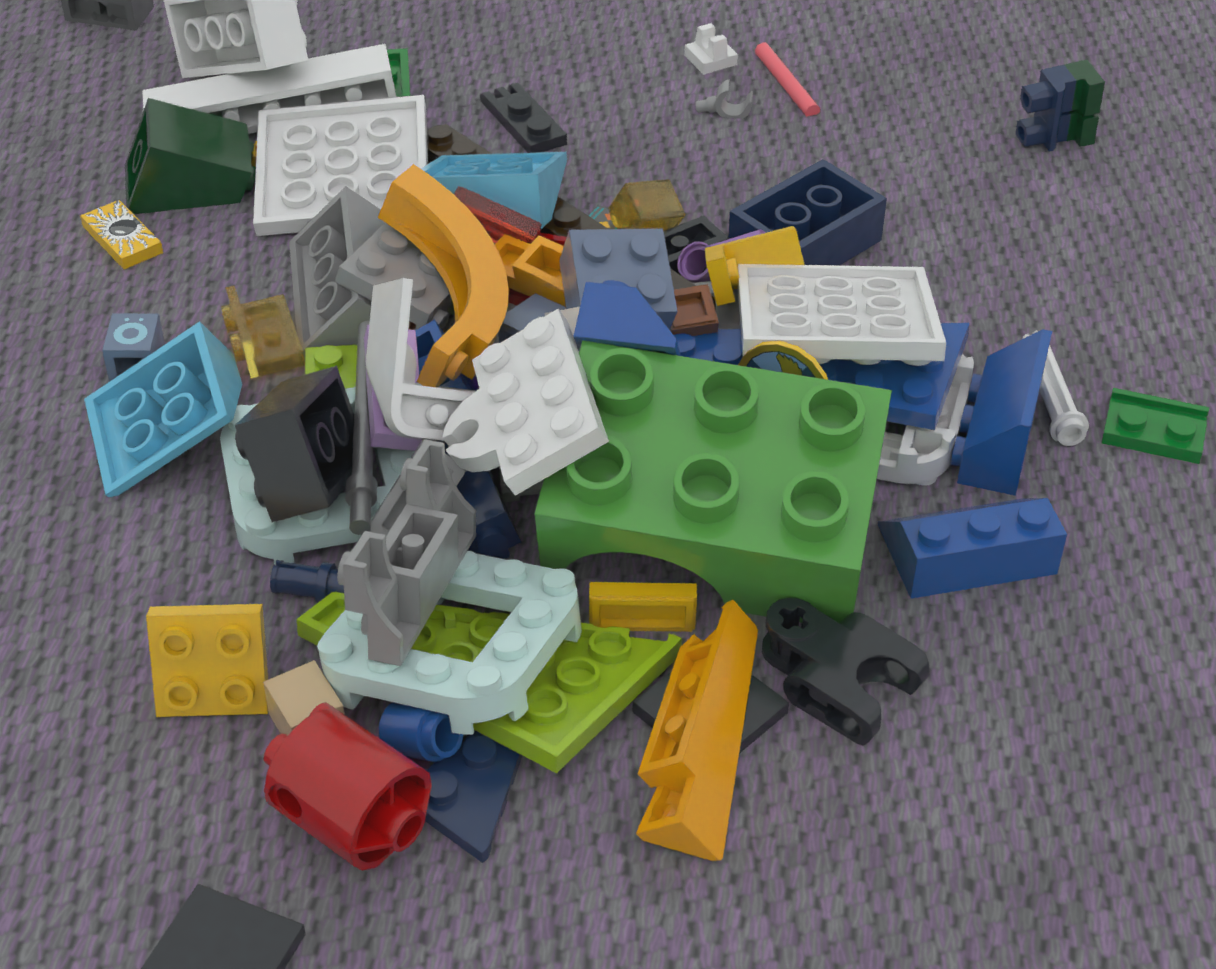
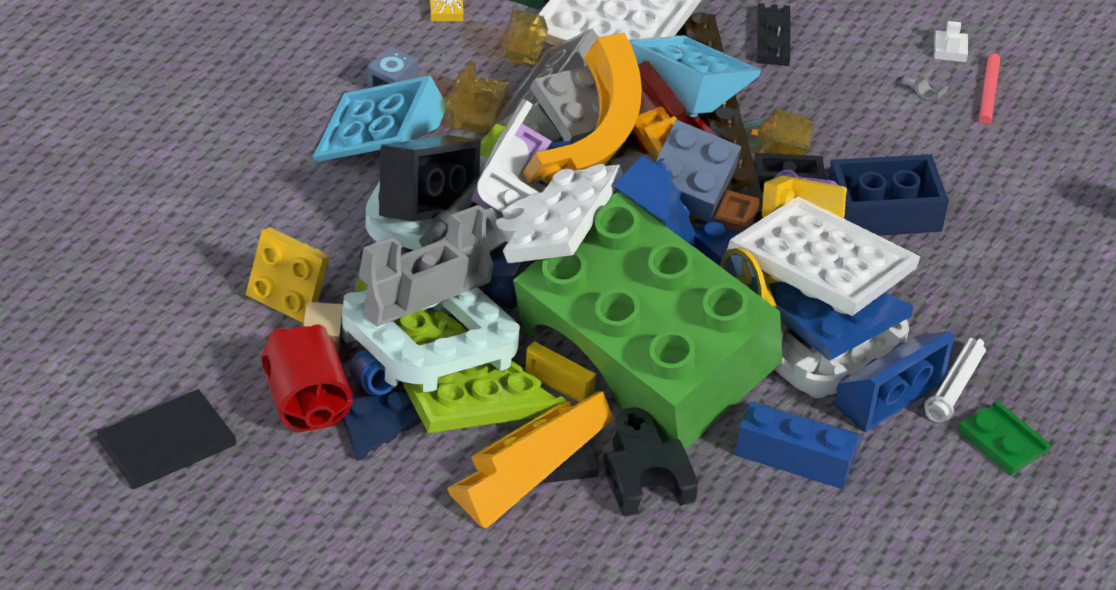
camera: 30 degrees right, 0 degrees up
(262, 235) = (524, 37): none -> clear yellow brick

